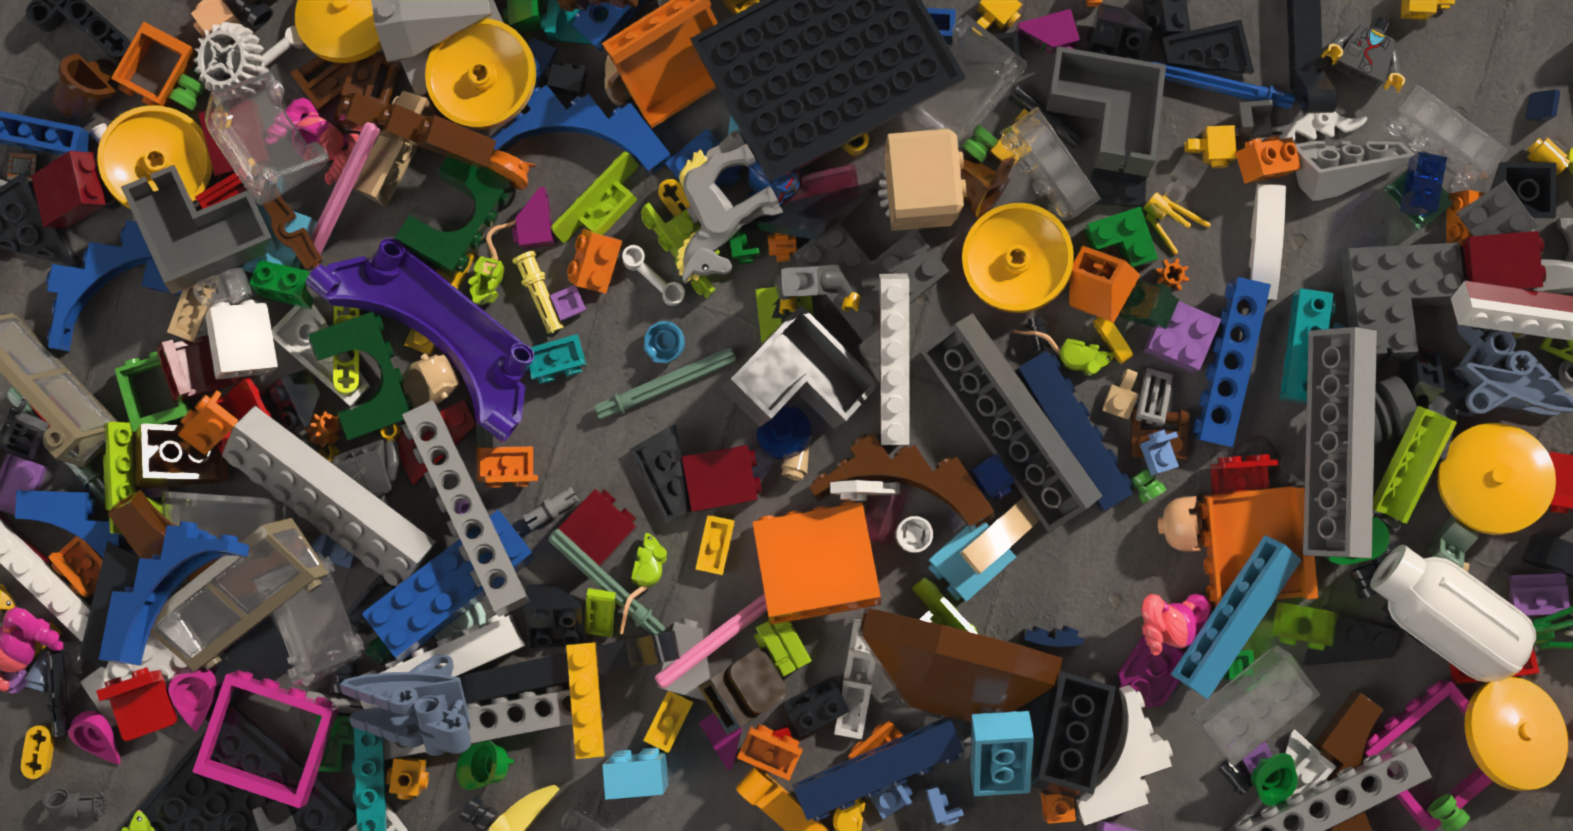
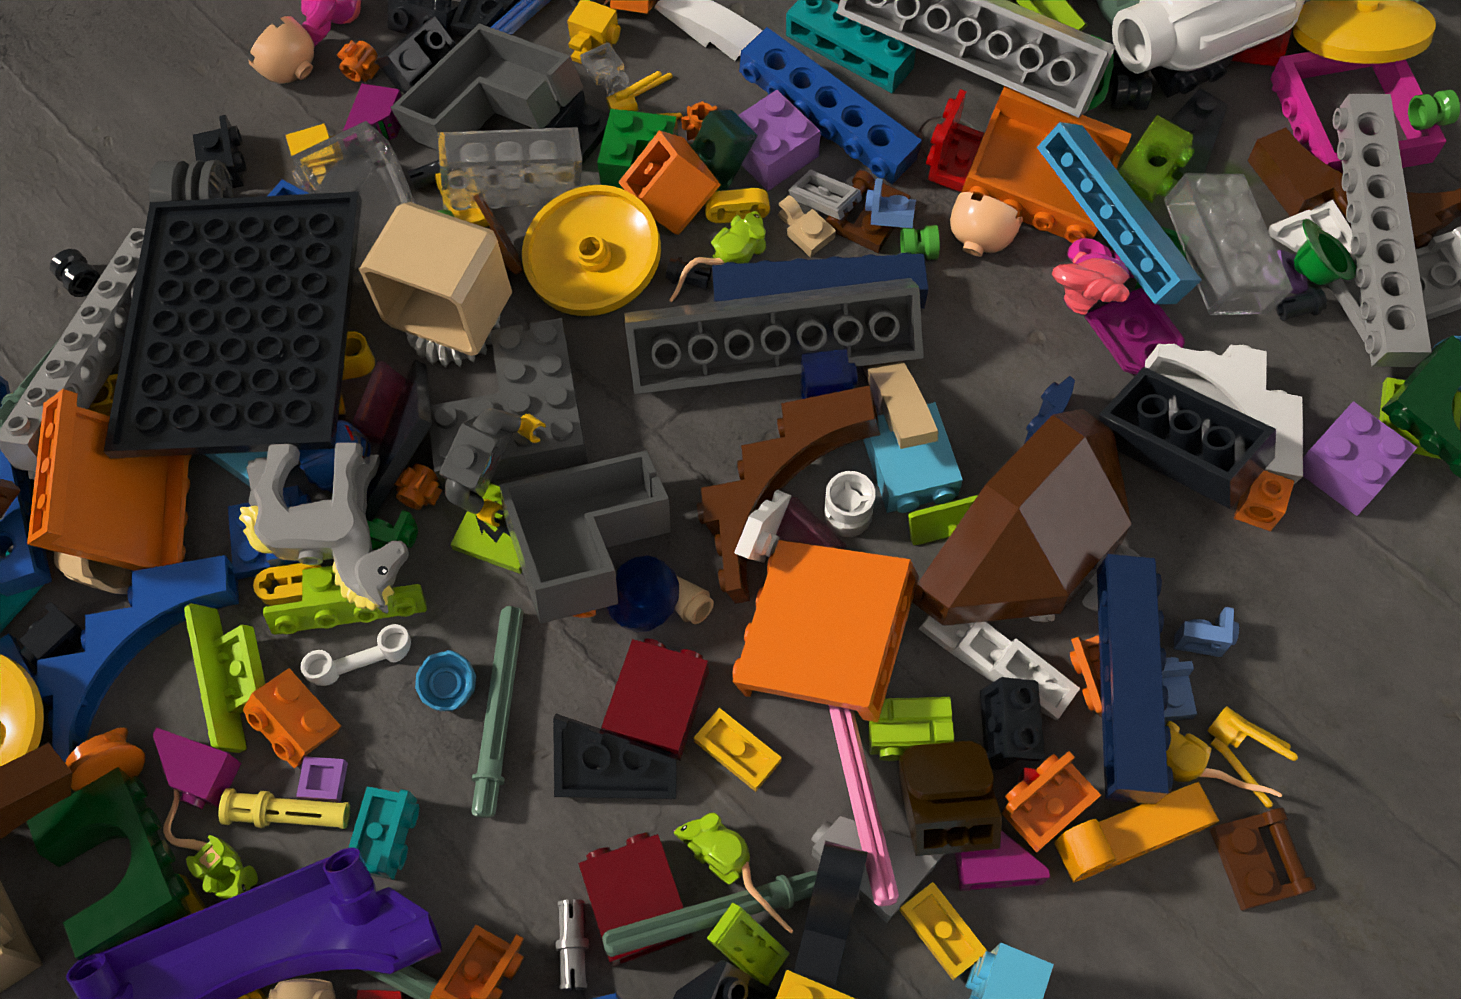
camera: 60 degrees left, 20 degrees down
(894, 358) = (625, 415): white brick -> none
(1001, 753) = (1174, 520): medium azure brick -> none

